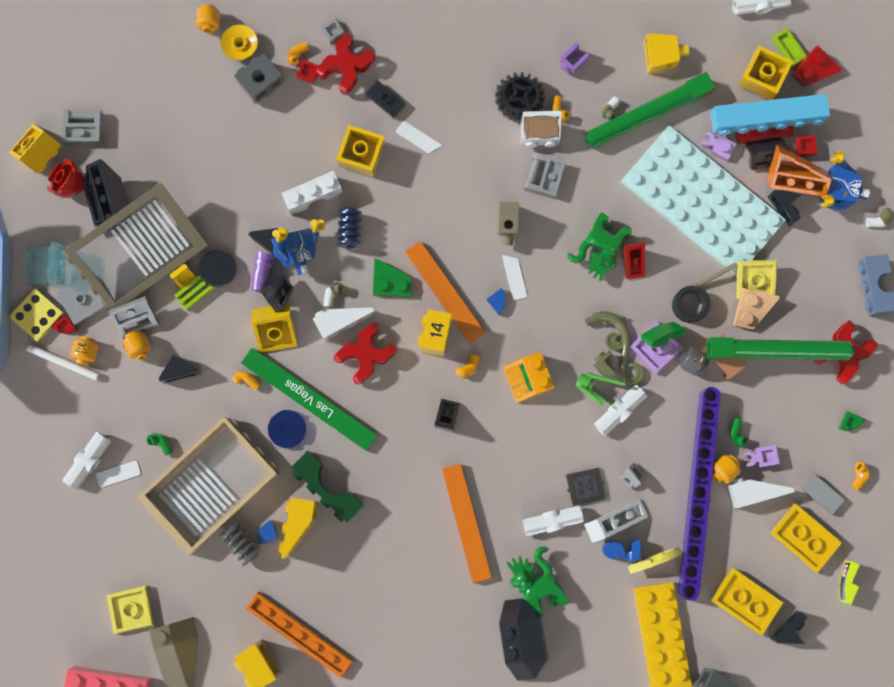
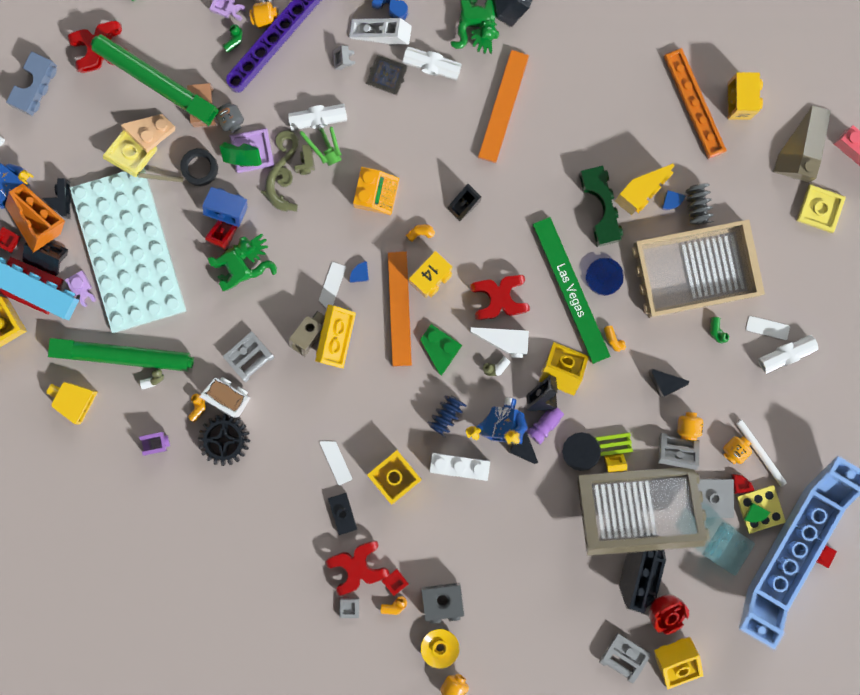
camera: 150 degrees left, 5 degrees up
(37, 306) = (756, 513): none -> green tile
(483, 232) = (335, 336): none -> yellow plate
(646, 284) = (225, 206): none -> blue brick

